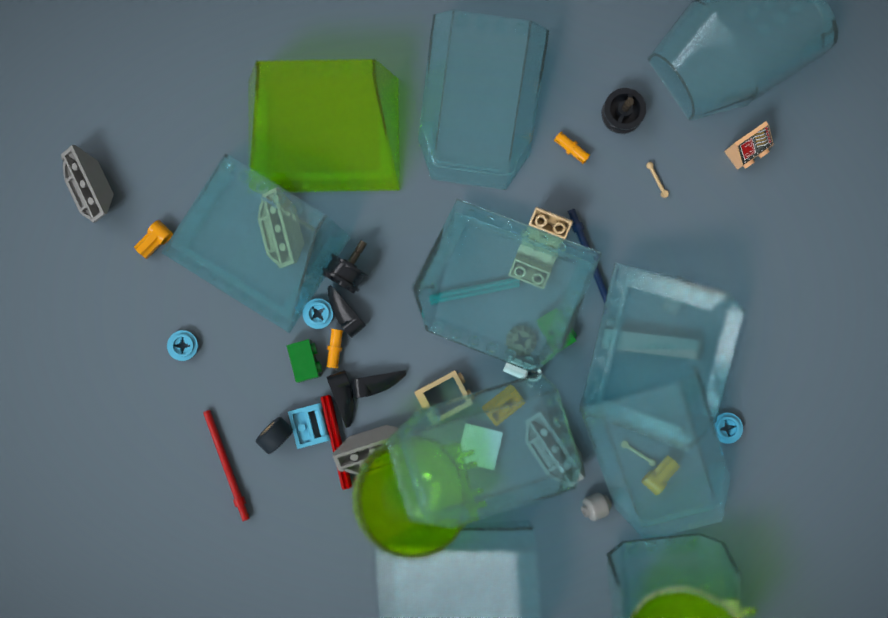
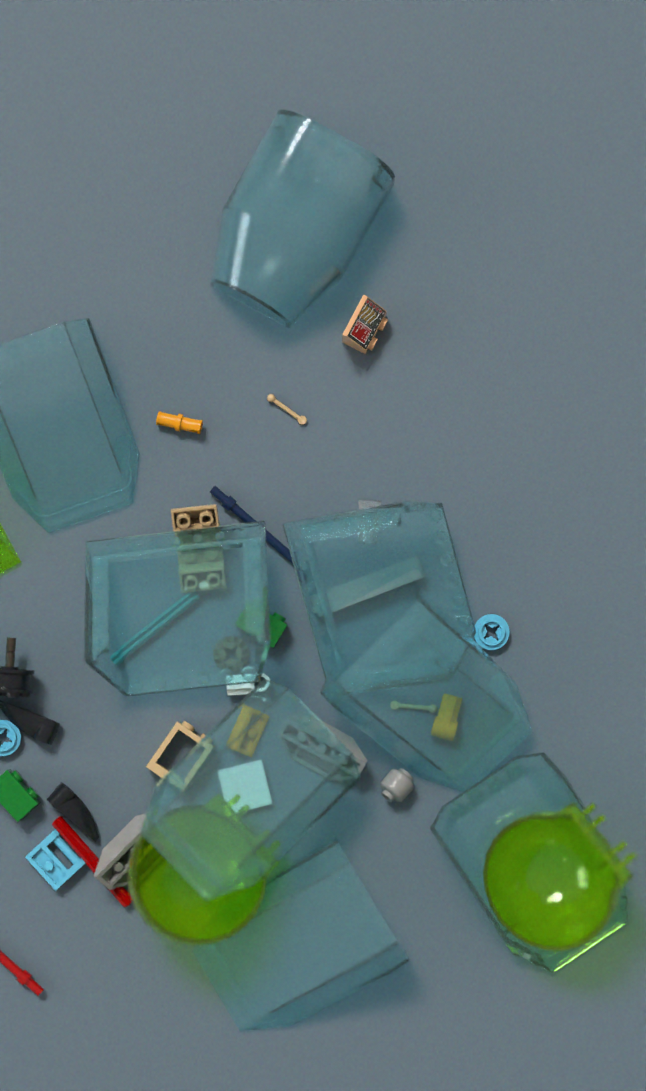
camera: 30 degrees left, 0 degrees up
(274, 435) = (23, 889): black wheel -> none
(334, 348) = (39, 765): light orange pin -> none
(375, 384) = (102, 779): black piece -> none
(623, 110) = (213, 356): black wheel -> none

